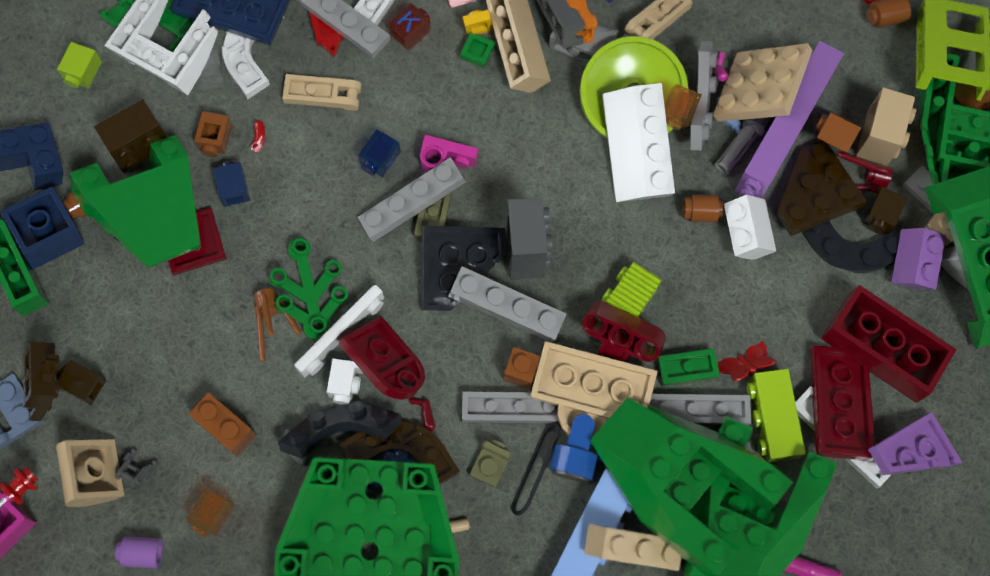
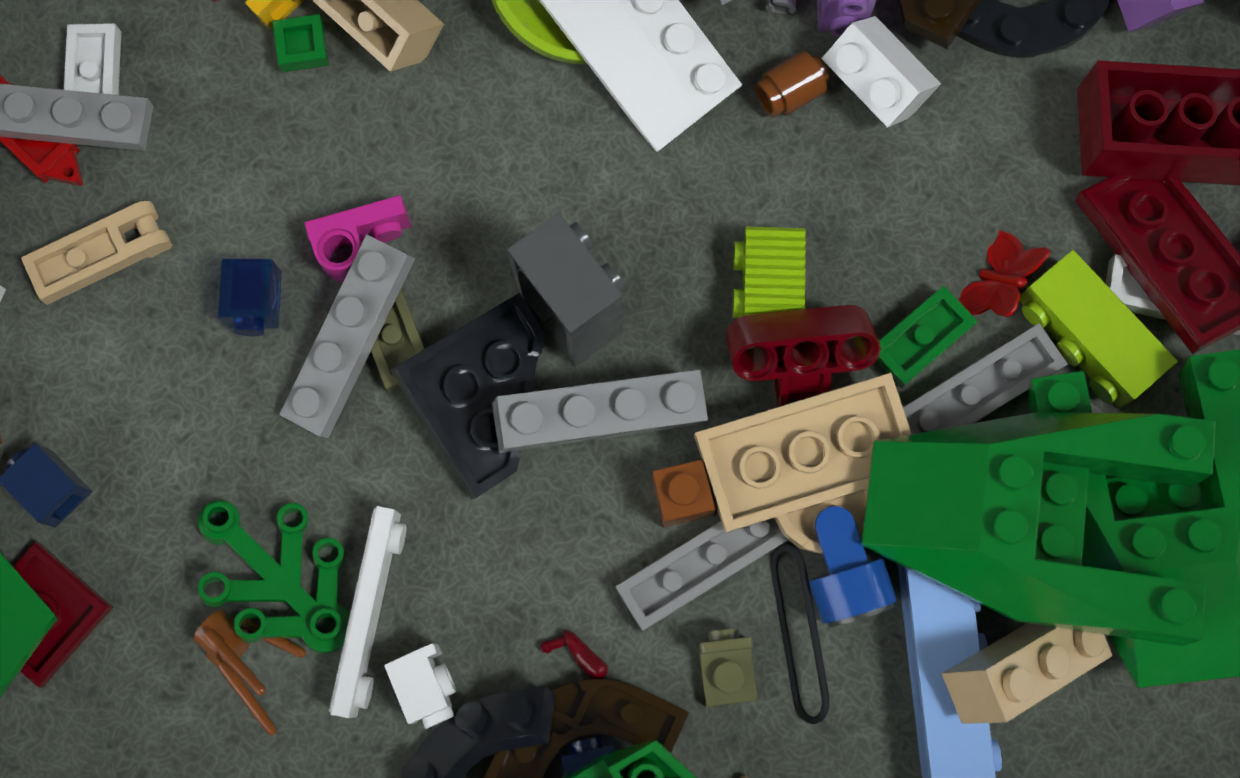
camera: 30 degrees left, 5 degrees up
(258, 141) = (41, 379): red piece -> none
(384, 359) = (464, 613): dark red tile -> none
(410, 26) = (171, 67): clear red brick -> none

